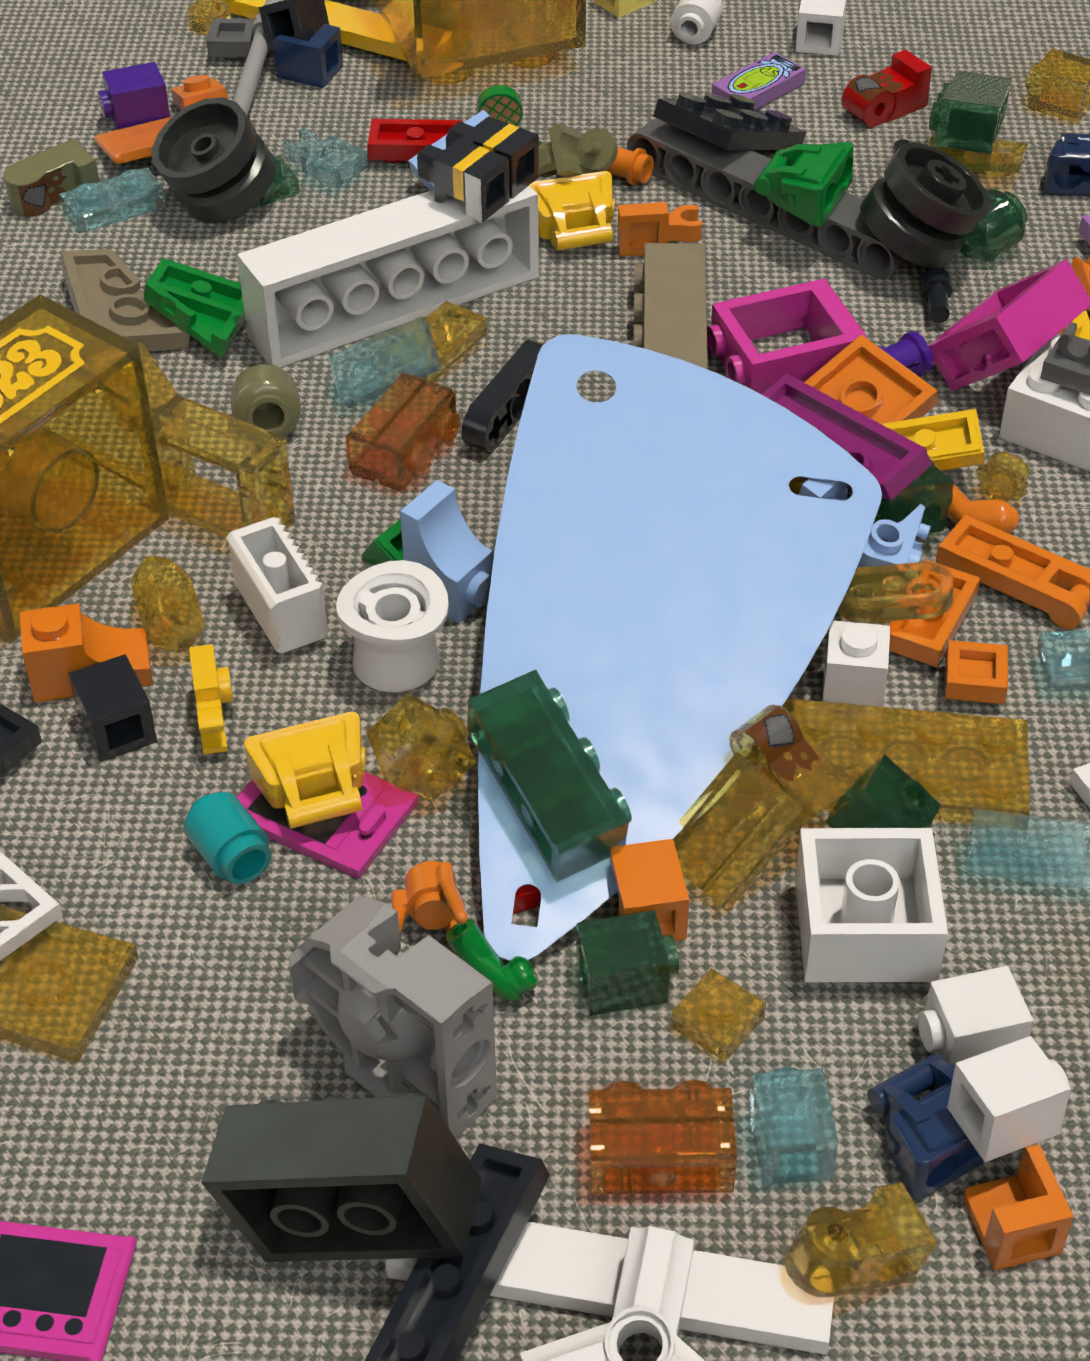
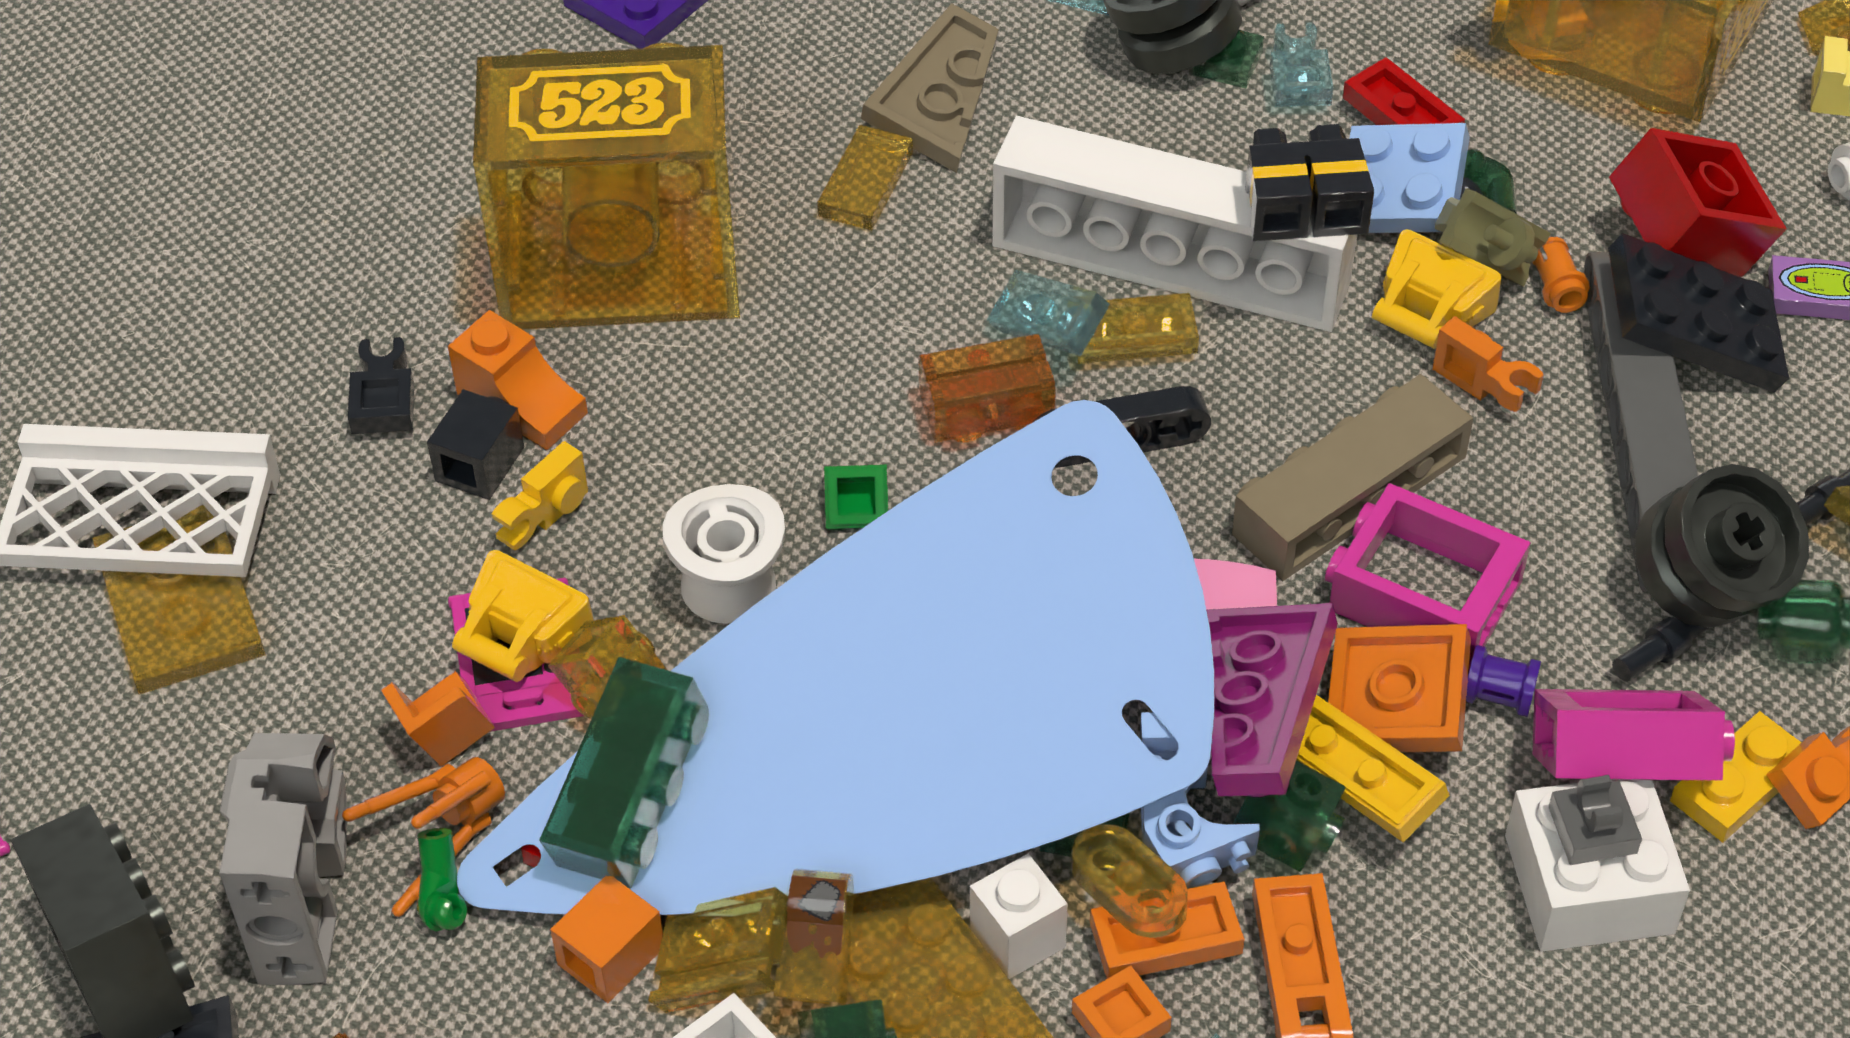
camera: 50 degrees right, 5 degrees up
(167, 604) = (618, 393): clear yellow plate -> none
(198, 303) = (981, 124): green wing -> none
(228, 837) = (411, 617): teal brick -> none
(250, 452) = (780, 310): clear yellow window -> none
(266, 399) = (919, 273): olive head -> none
(278, 584) = (699, 438): white brick -> none
(341, 869) = (441, 719): none -> orange panel
(442, 541) = (840, 498): light blue arch -> none
(502, 104) = (1520, 132): green tile -> none
(625, 962) = (517, 971): clear green brick -> none
(645, 69) = (1697, 199): none -> red brick
(808, 179) = (1656, 432): green piece -> none
(992, 512) = (1349, 888): orange arm -> none
(1004, 476) = (1424, 873): clear yellow plate -> none

